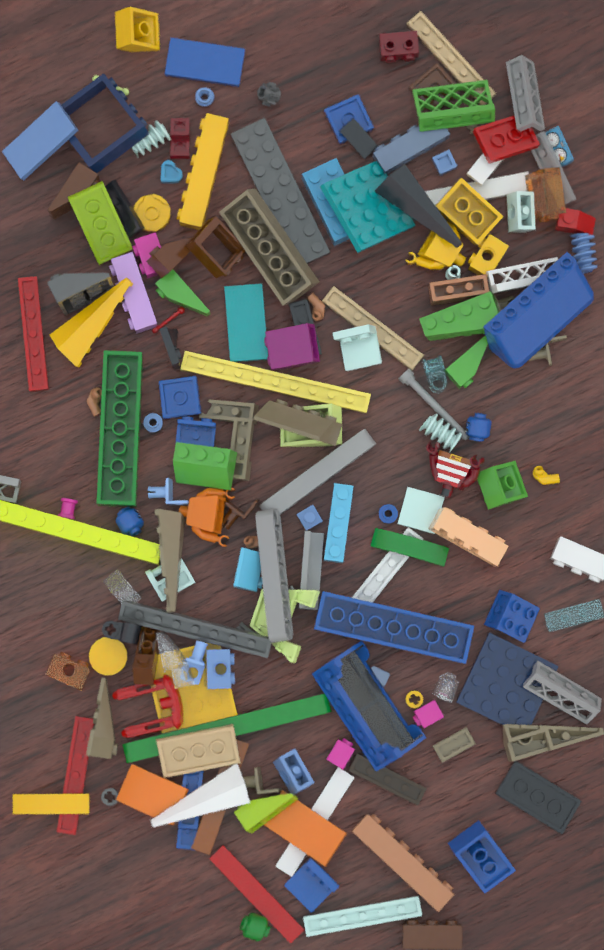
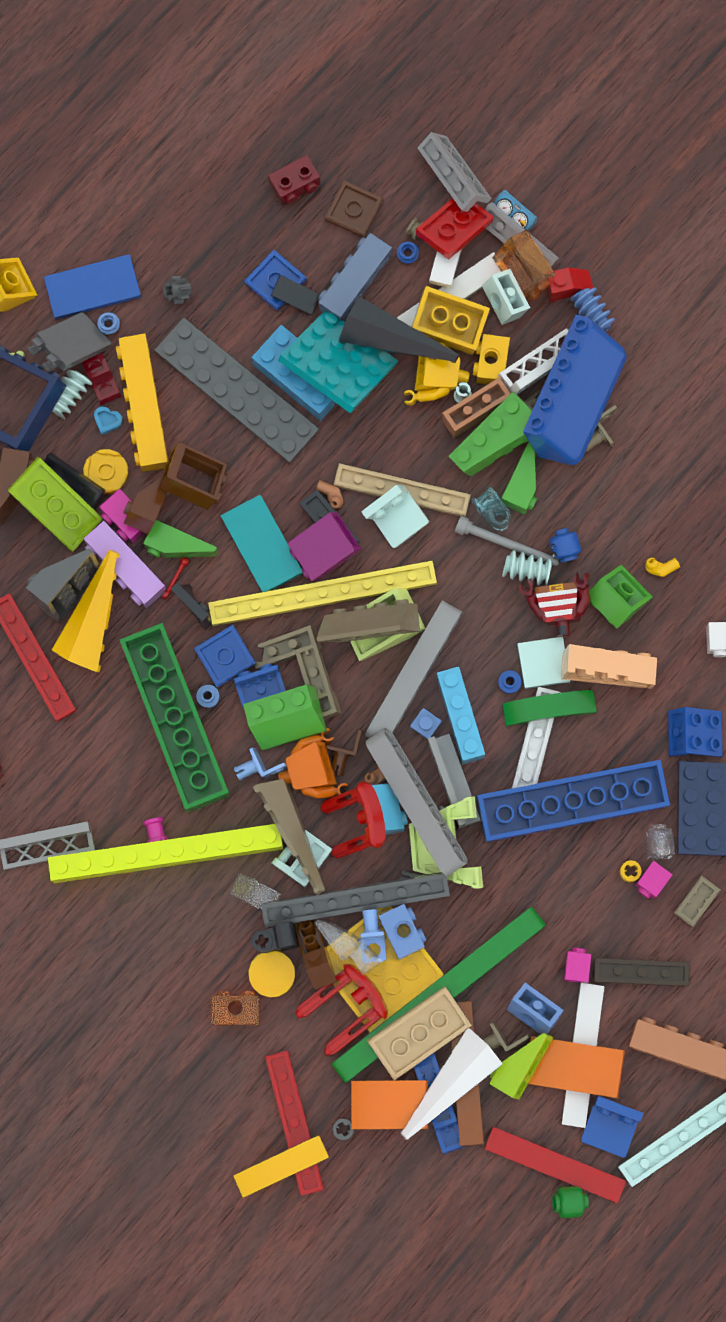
camera: 15 degrees left, 5 degrees down
(93, 401) = (131, 696): nougat arm -> none
(102, 736) = (304, 1062): dark tan wedge -> none
(129, 521) = (230, 814): blue head -> none
(167, 100) = (69, 342): none -> dark grey tile
(234, 570) = (370, 815): none -> red piece
(269, 246) = (250, 450): dark tan brick -> none
(366, 707) = (583, 903): windscreen -> none
(381, 675) = (582, 860): sand blue slope -> none
(444, 162) = (399, 281): medium blue plate -> none
(445, 52) = (357, 170): tan tile -> none
(455, 116) = (389, 224): bright green fence -> none
(464, 137) = (407, 246): none -> blue plate

